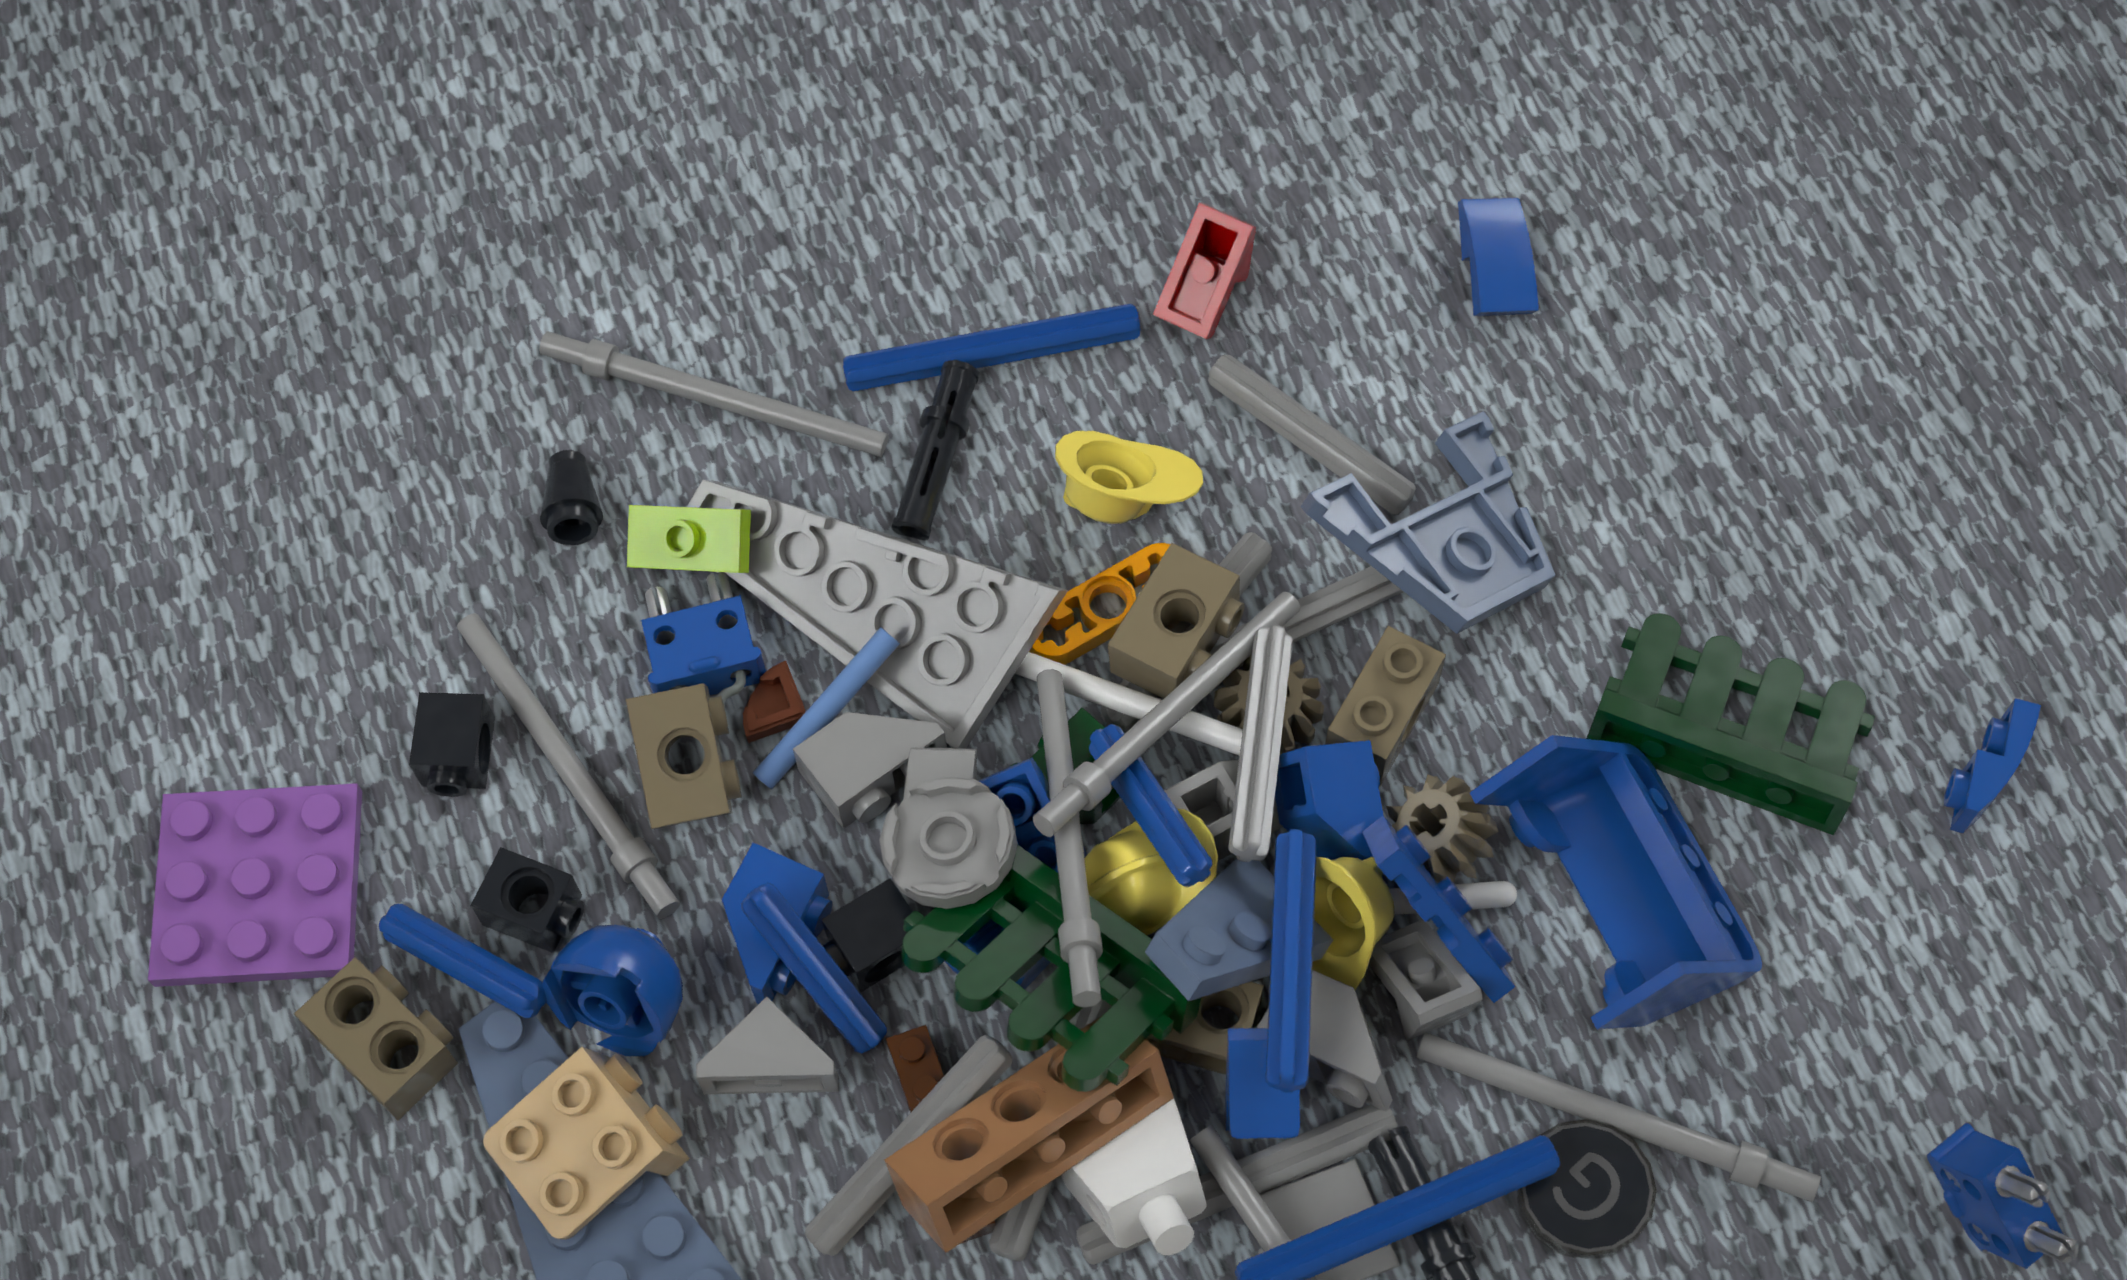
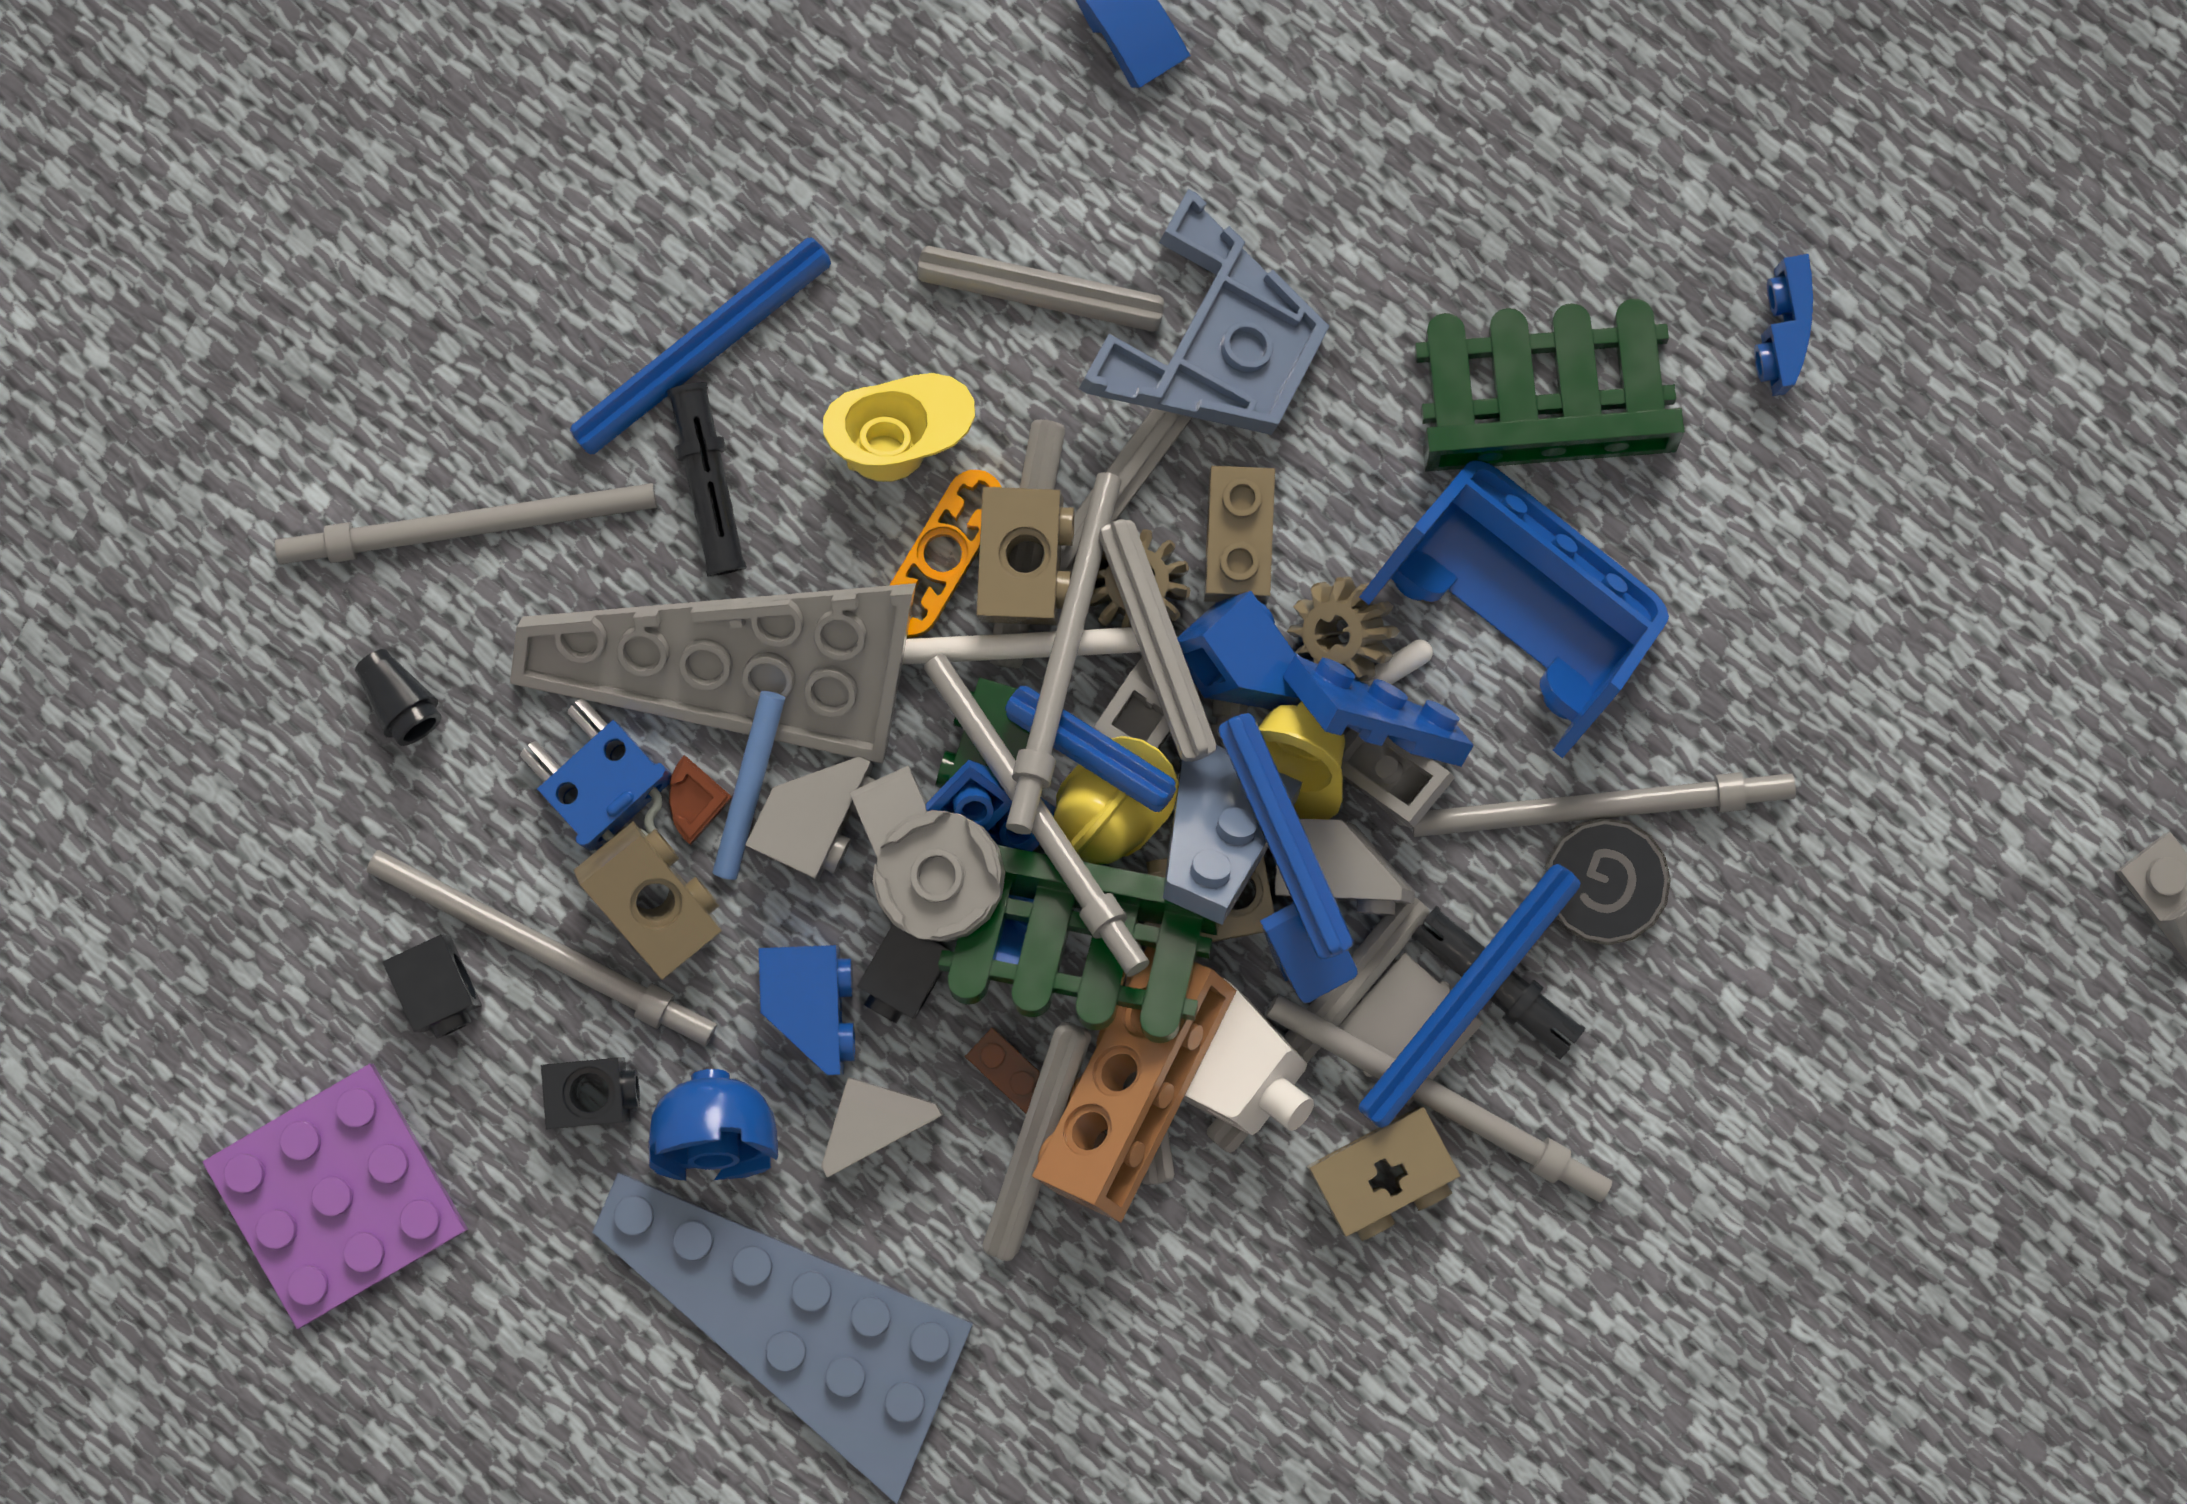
camera: 30 degrees left, 20 degrees up
(371, 1044) = (527, 1292): dark tan brick -> none
(463, 960) = (561, 1173): blue axle -> none
(582, 1141) = (760, 1275): tan bracket -> none
(688, 538) = (533, 687): lime plate -> none
(814, 967) = (873, 1032): blue axle -> none
(1205, 270) = (865, 177): slope -> none
(1998, 1198) = (1946, 730): blue piece -> none

